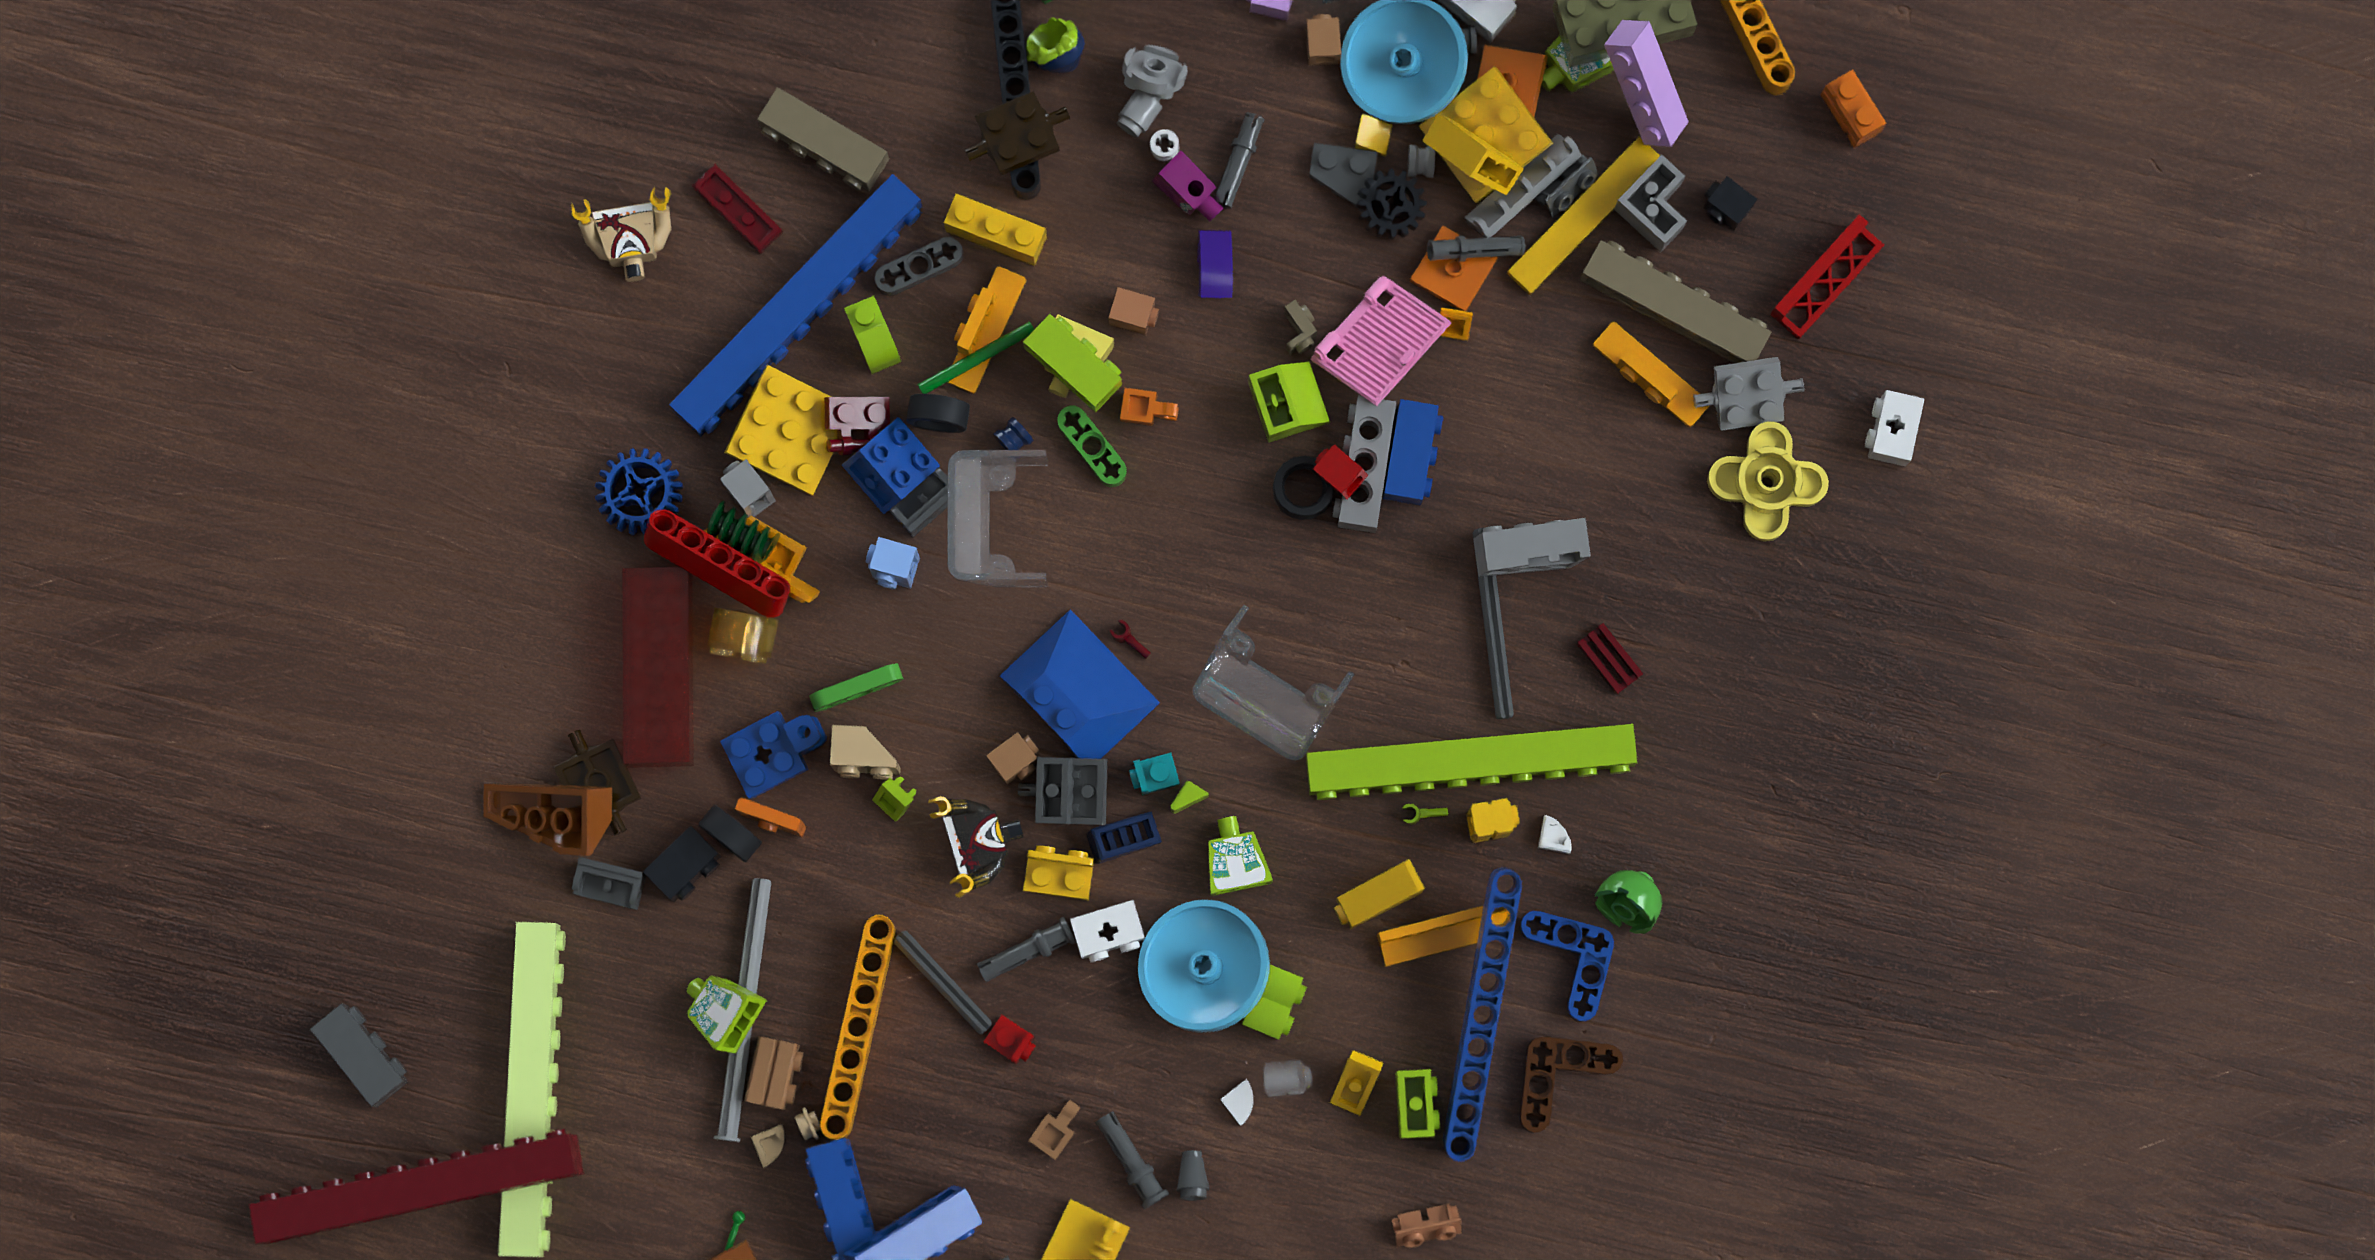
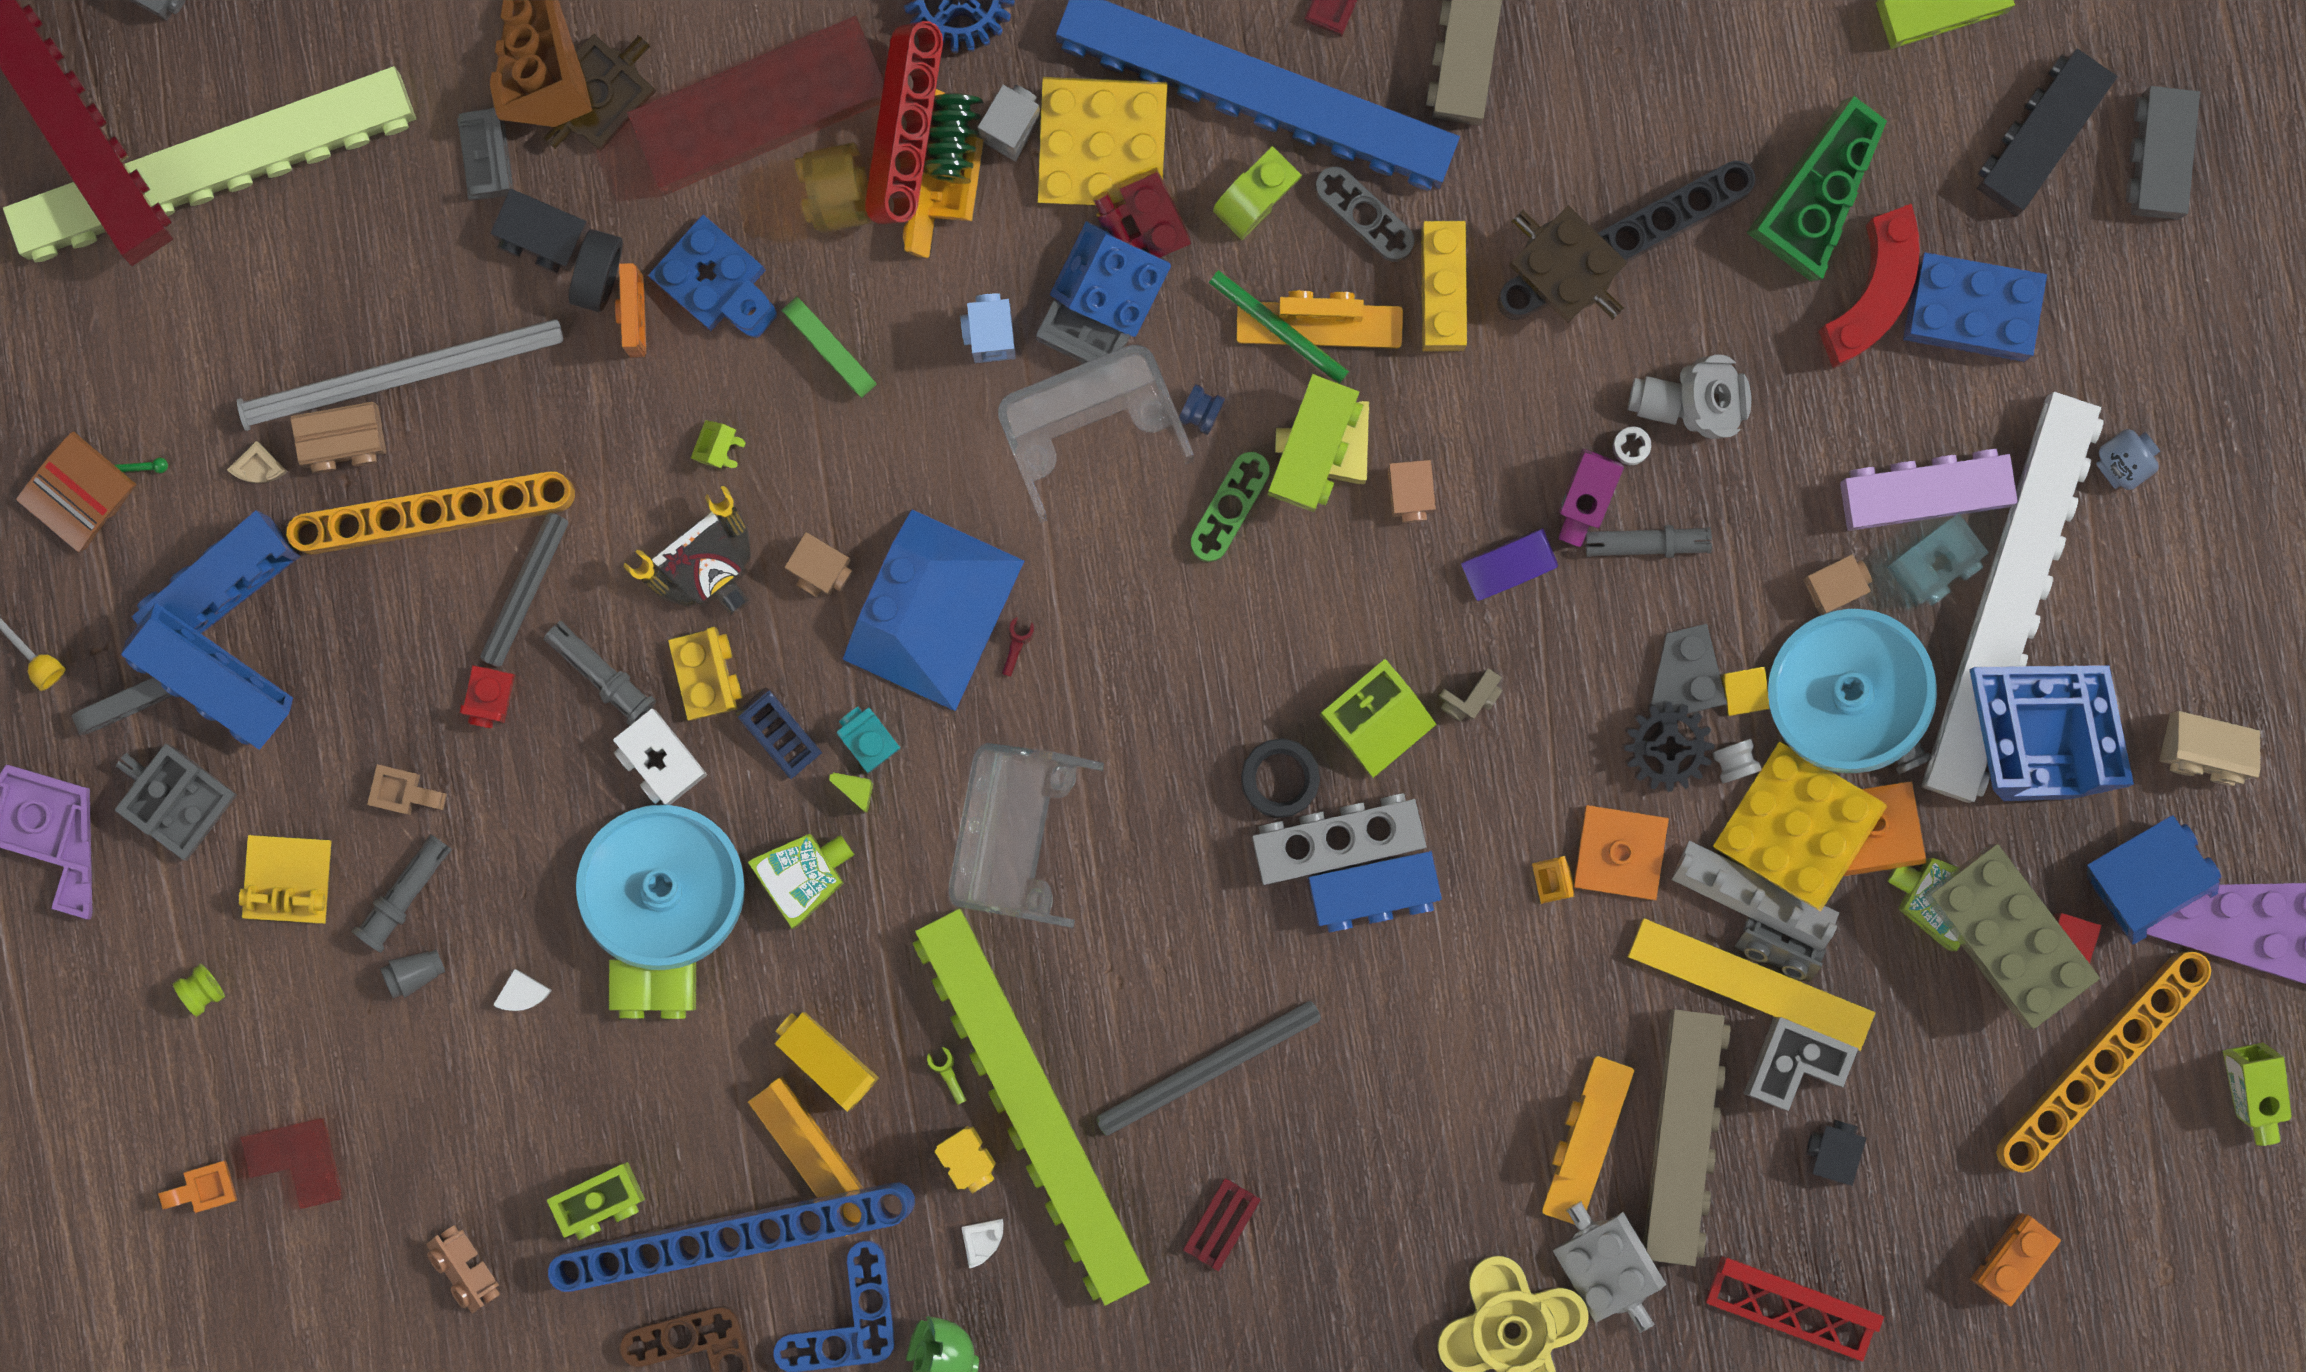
camera: 65 degrees right, 5 degrees up
(723, 1011) = (385, 348): torso -> none
(808, 1124) = (296, 500): tan plate -> none
(858, 751) = (753, 383): tan slope -> none
(938, 413) = (1192, 309): black tyre -> none
(1055, 46) = (1697, 266): lime hair -> none
(1069, 790) = (804, 646): dark grey plate -> none
(1142, 407) = (1300, 547): orange plate -> none
(1286, 1079) = (564, 1036): clear brick -> none
(1339, 471) = (1311, 813): red brick -> none
(1356, 1082) = (595, 1121): yellow slope -> none
(1380, 340) = (1494, 800): bright pink window -> none
(1464, 248) = (1646, 853): dark grey pin -> none
(1472, 154) = (1763, 819): yellow slope -> none
(1531, 547) = (1314, 1077): light grey wedge -> none
(1646, 83) = (1936, 995): lavender brick -> none

